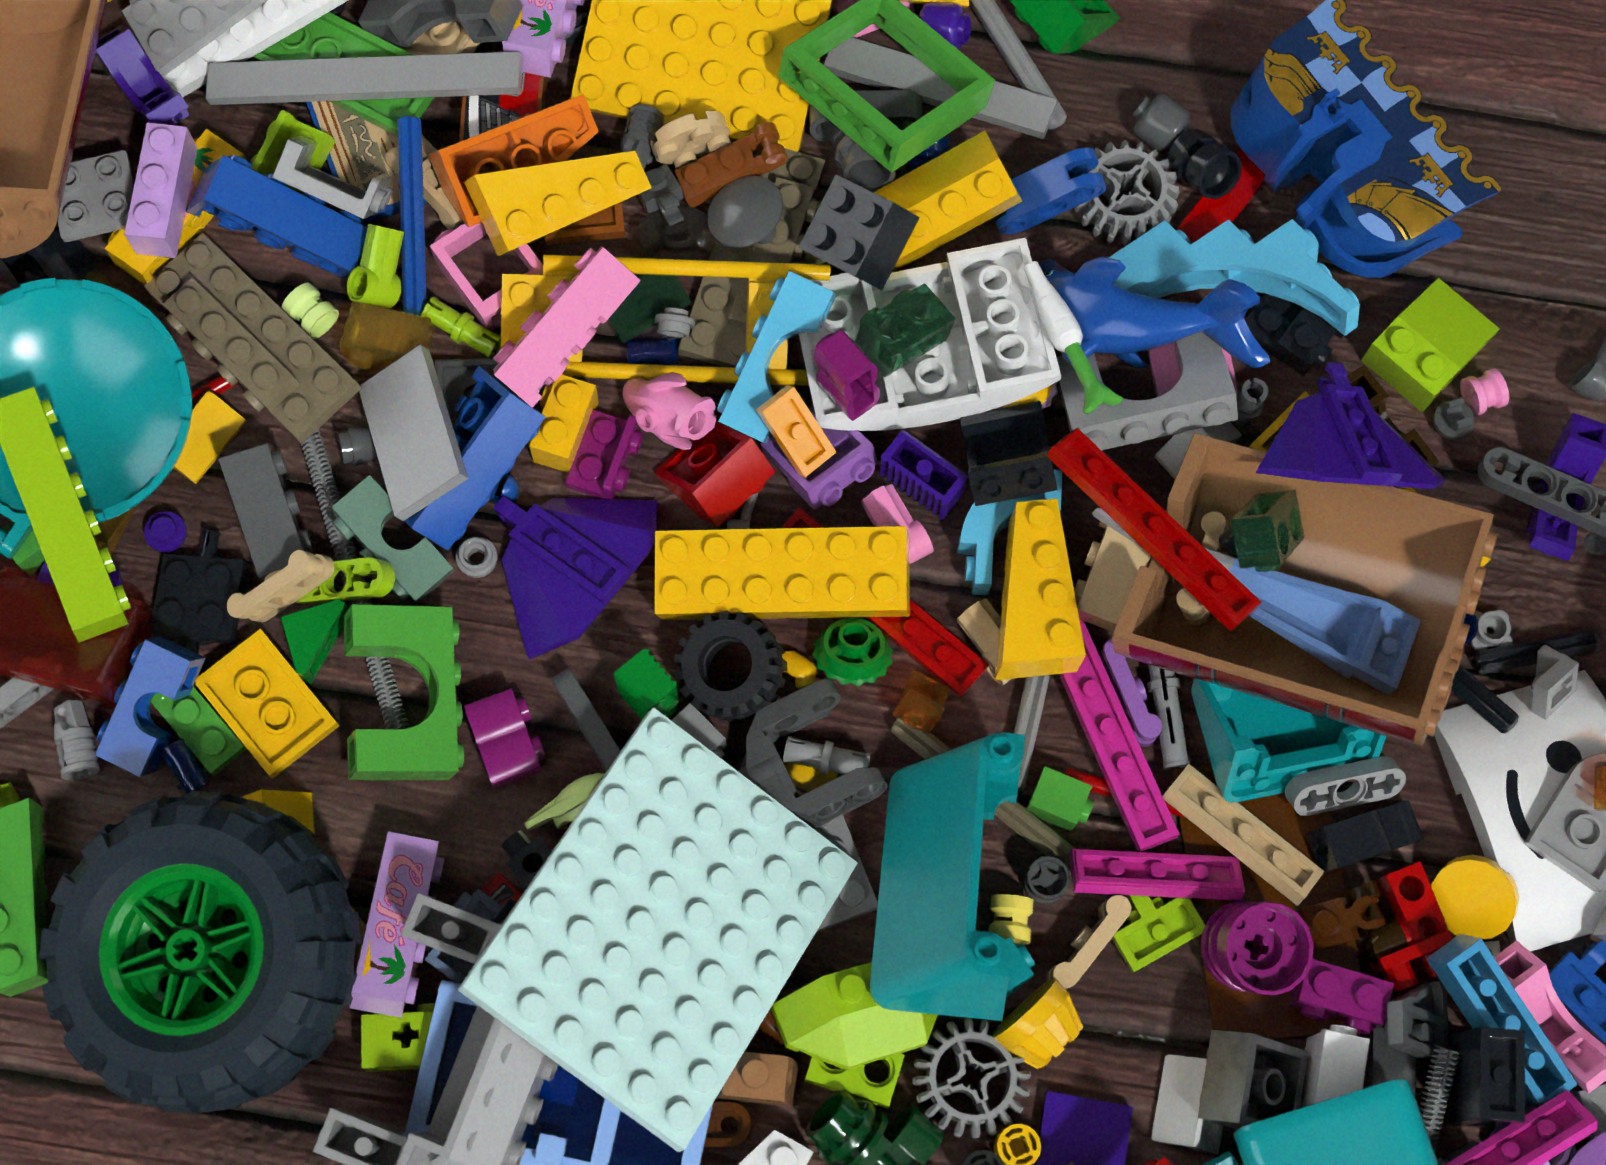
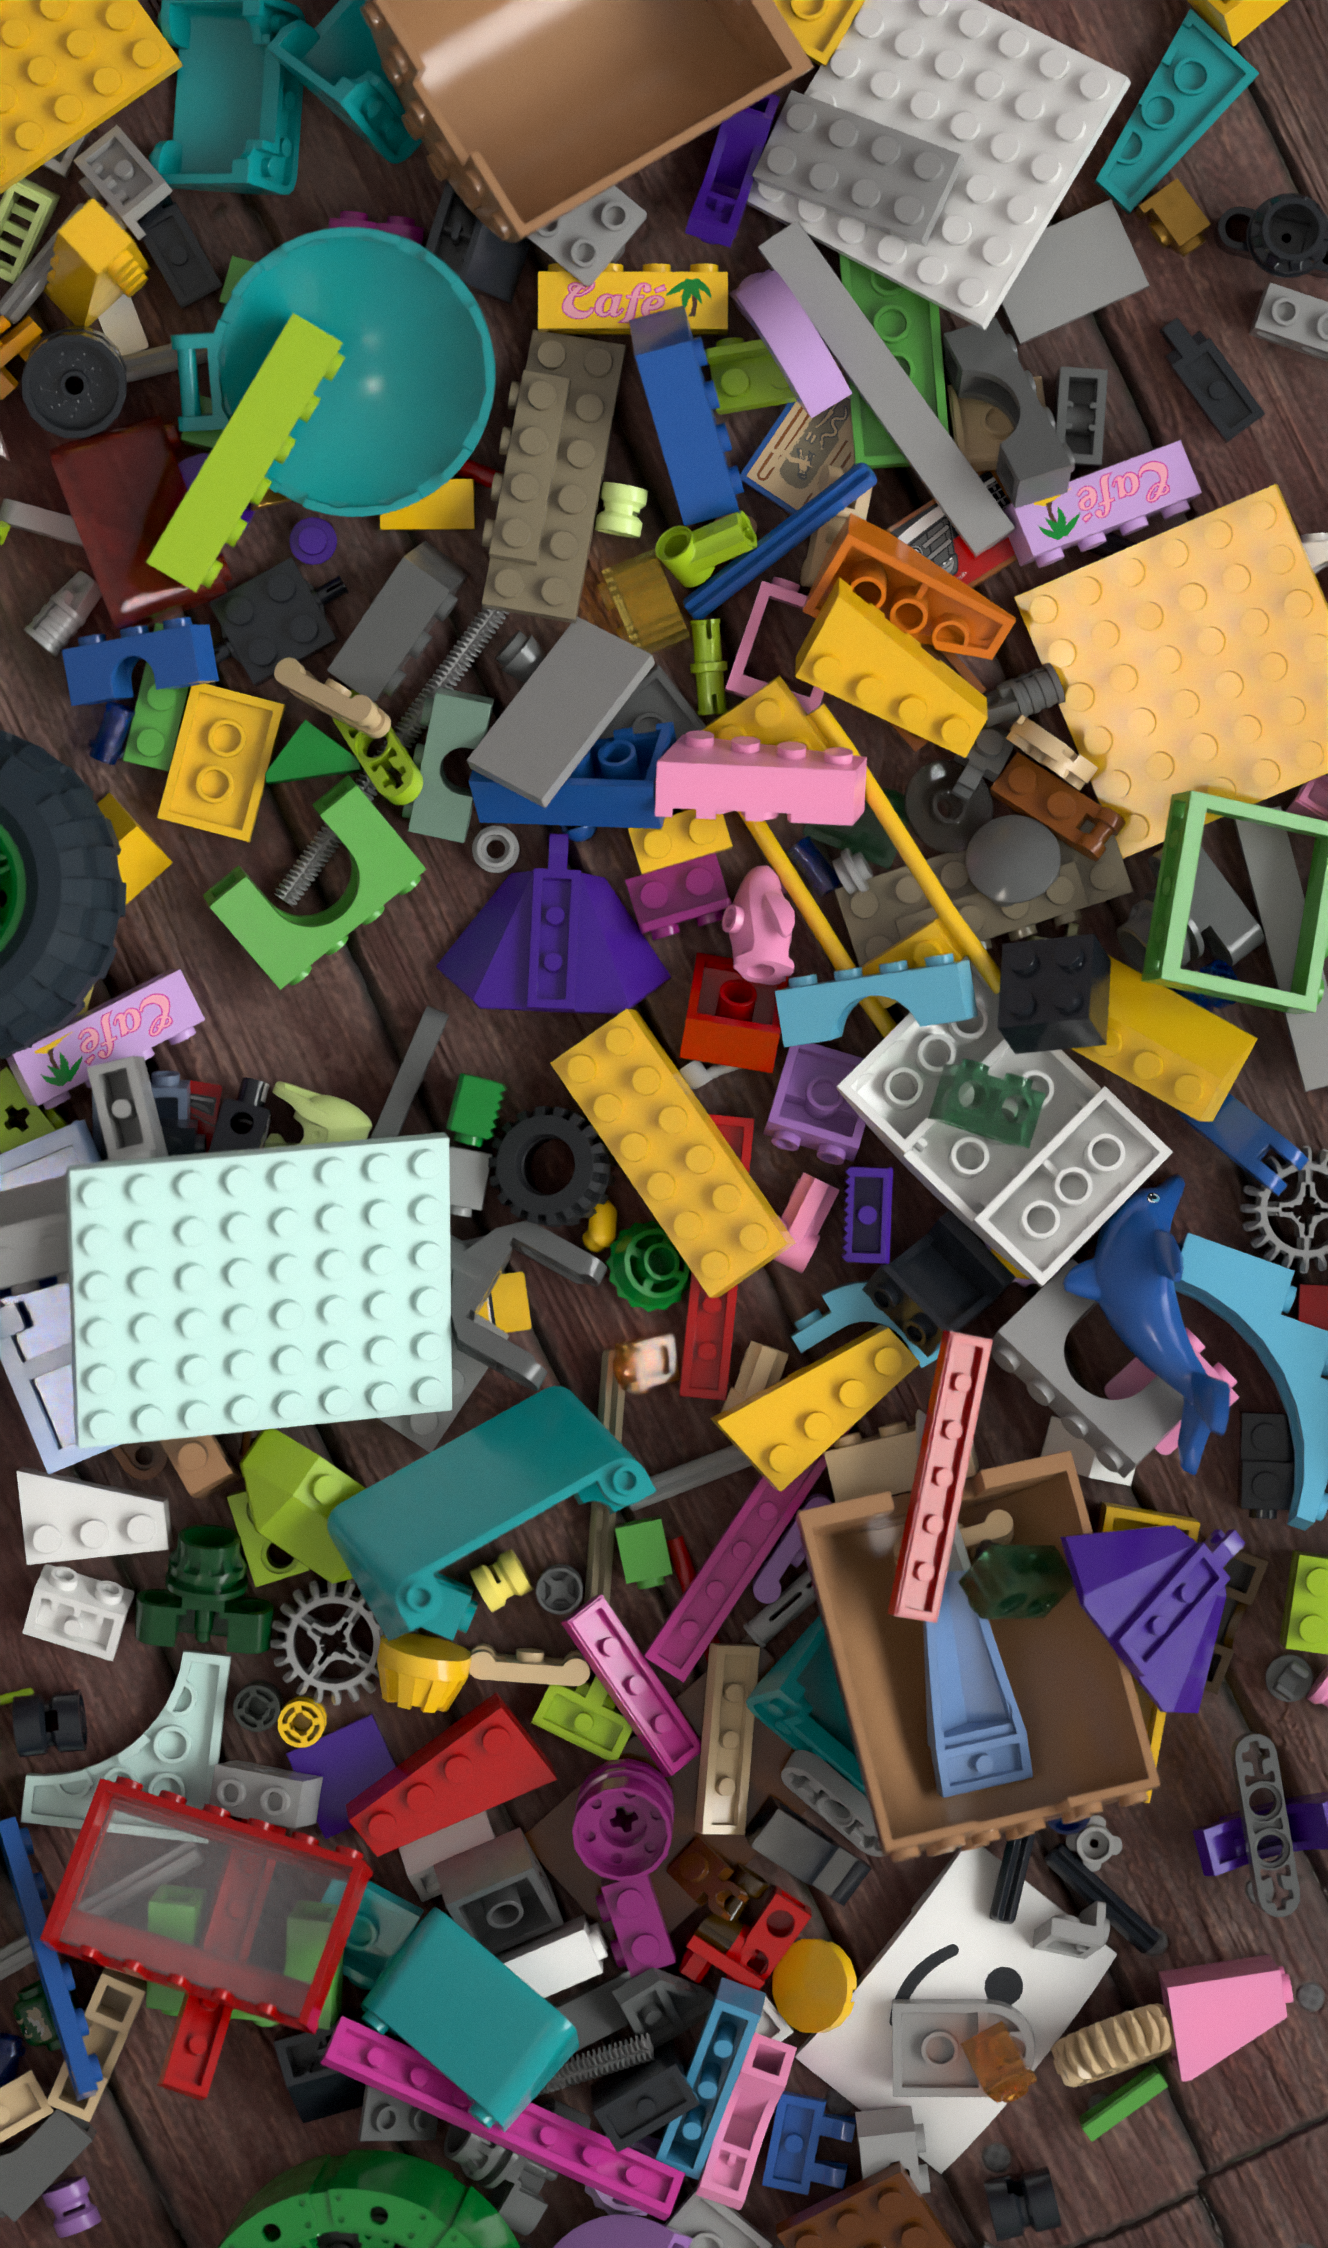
camera: 55 degrees right, 15 degrees up
(161, 190) = (628, 288): lavender brick -> none
(284, 109) = (791, 341): none -> lavender arch
(295, 171) = (747, 448): light grey panel -> none
(504, 739) = (343, 1004): magenta brick -> none
(796, 430) = (814, 1073): light orange plate -> none
(824, 756) = (534, 1311): light grey pin -> none
(846, 374) = (893, 1087): magenta brick -> none
(1067, 337) = (1083, 1266): white piece -> none
(1138, 1060) = (451, 1778): none -> red wedge
(1250, 402) = (1161, 1483): dark grey pin -> none

